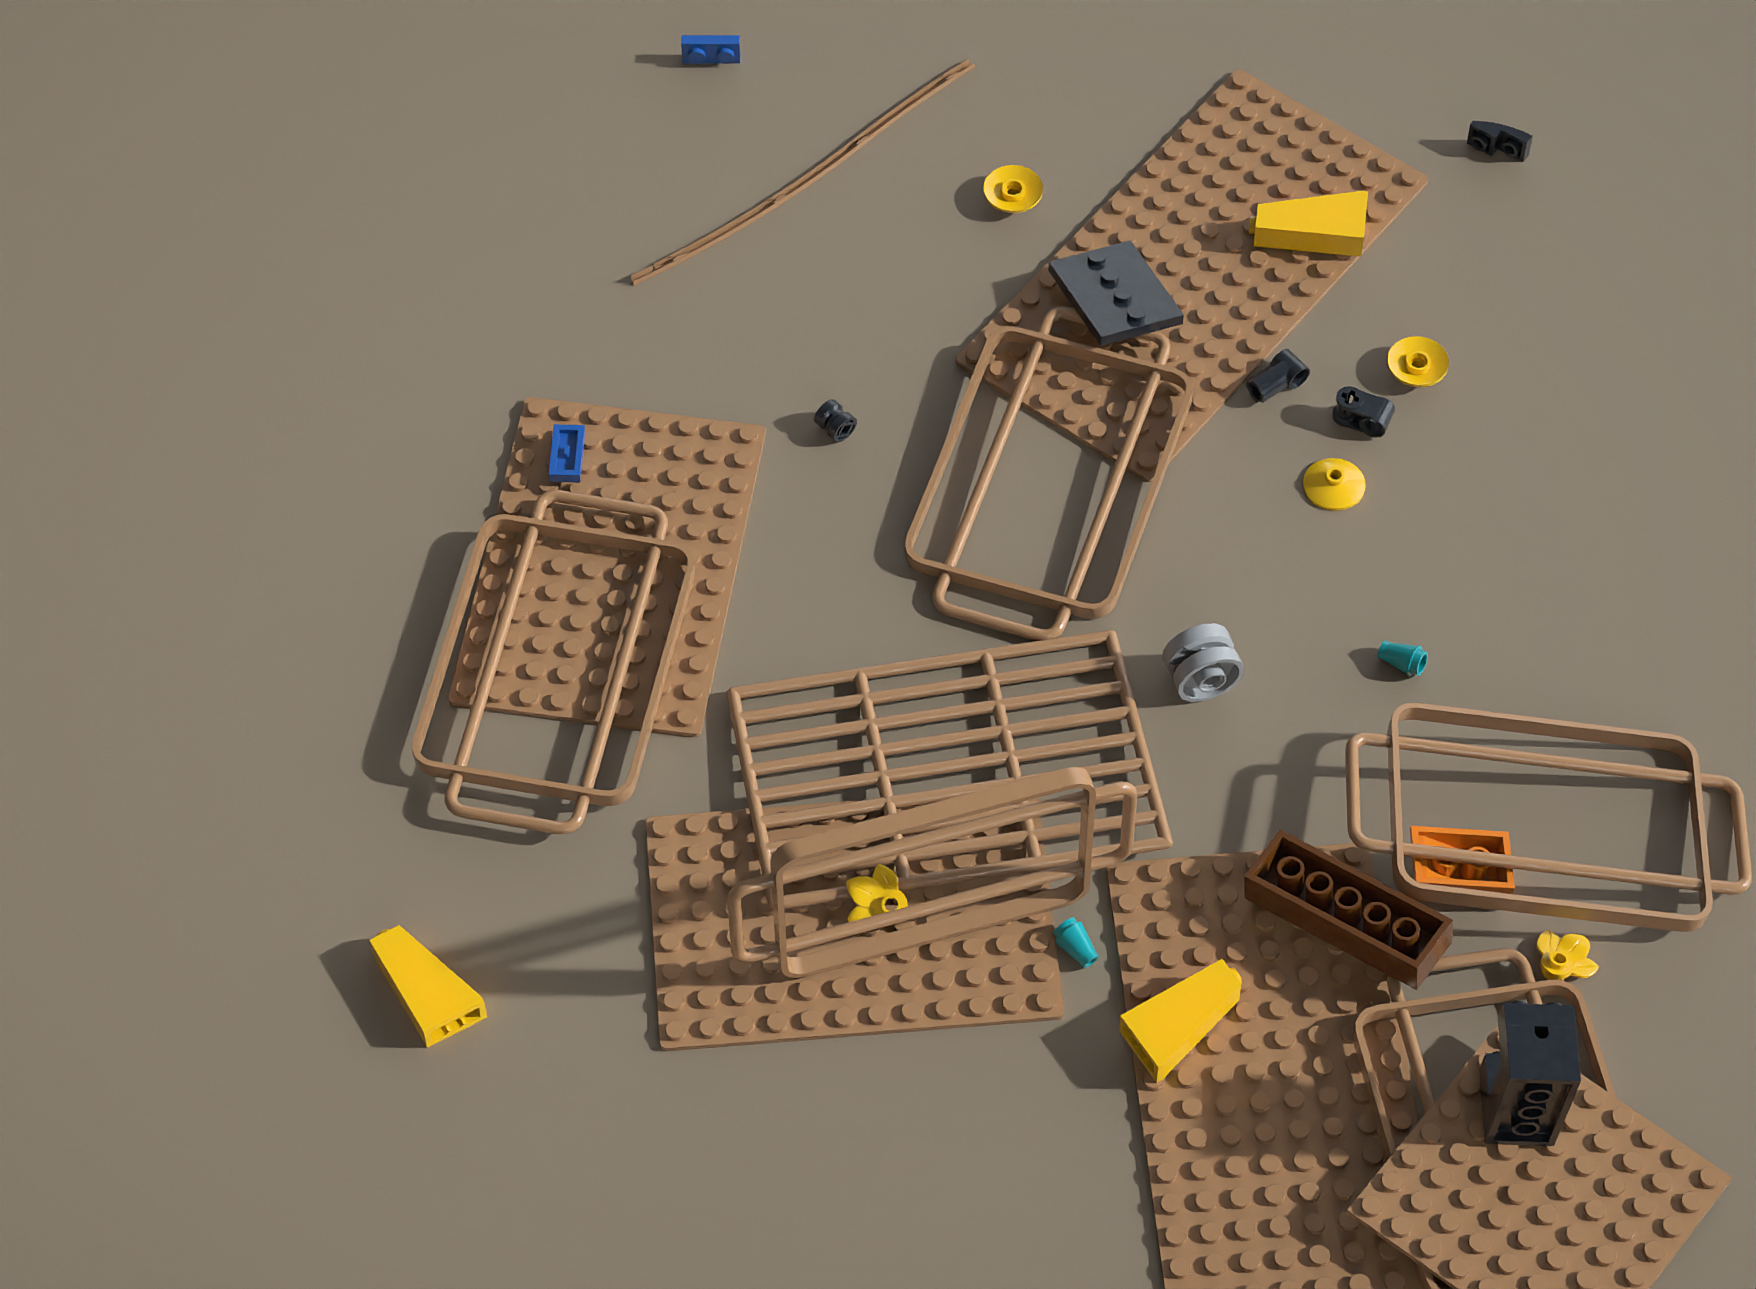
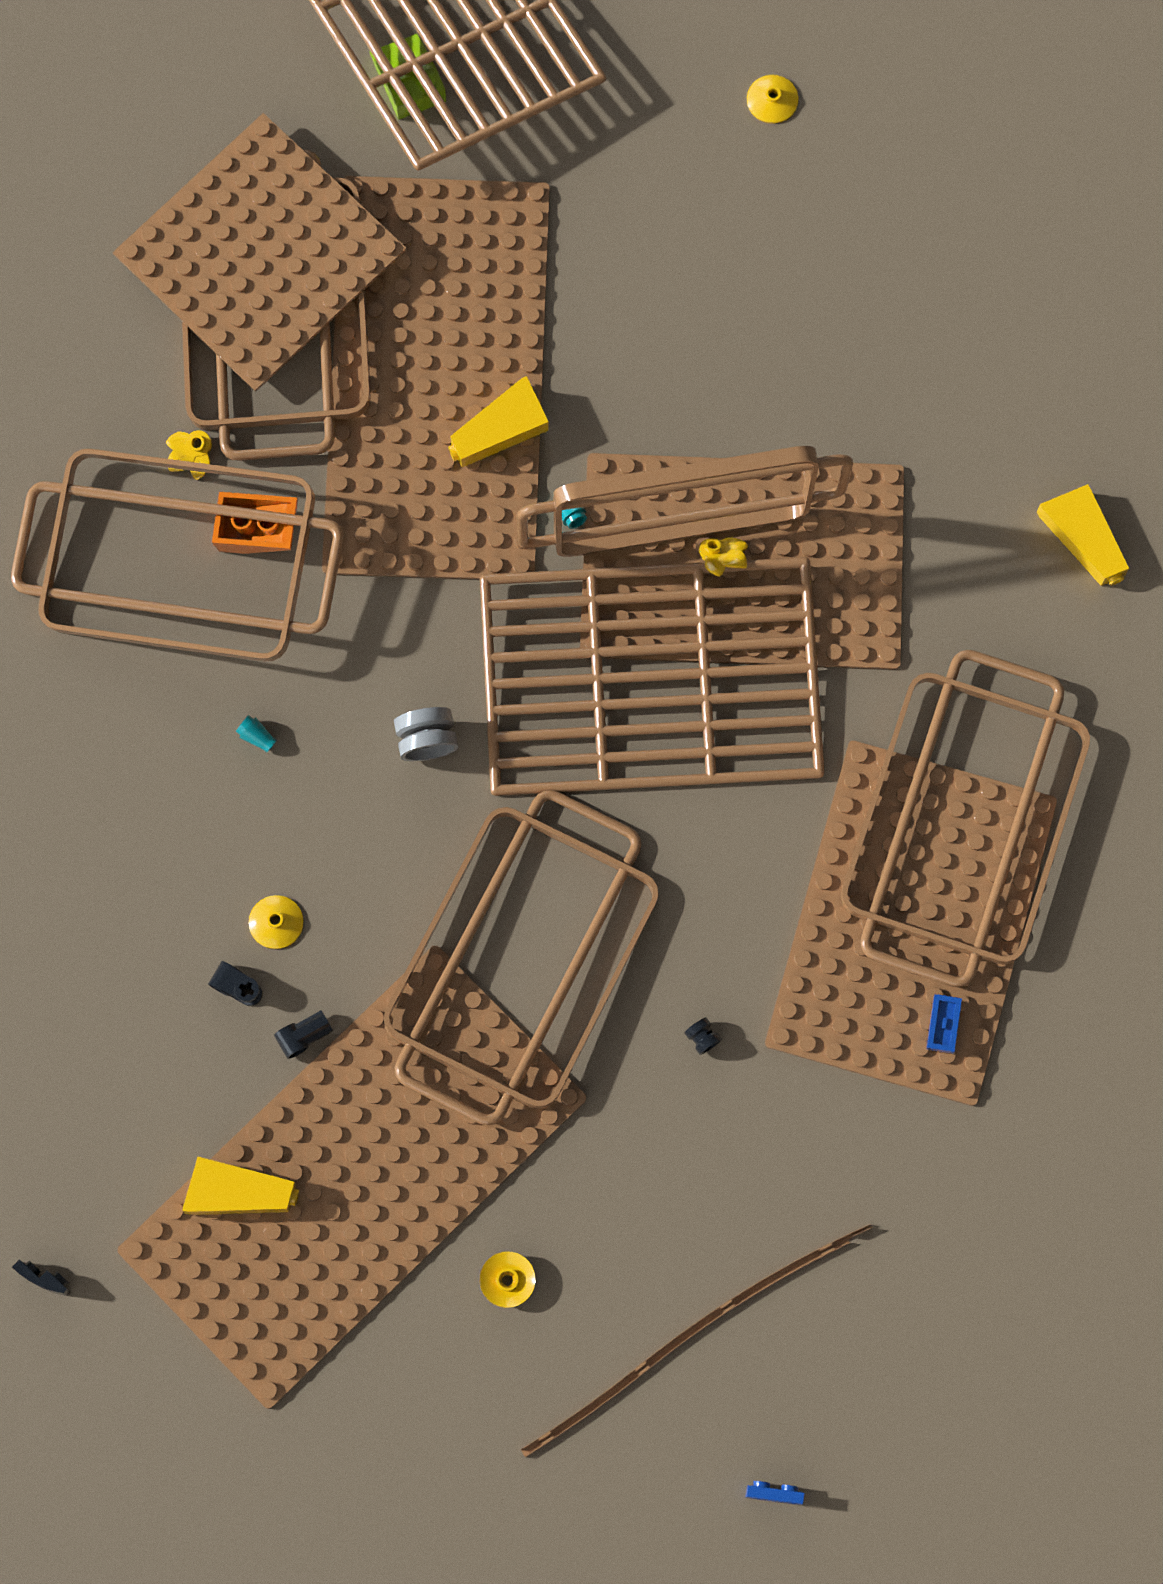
camera: 175 degrees left, 20 degrees up
(1115, 293) = (434, 1131): black plate -> none
(1348, 909) = (354, 487): reddish brown brick -> none
(1421, 353) = (168, 1020): yellow dish -> none
(1532, 1076) = (254, 294): black piece -> none

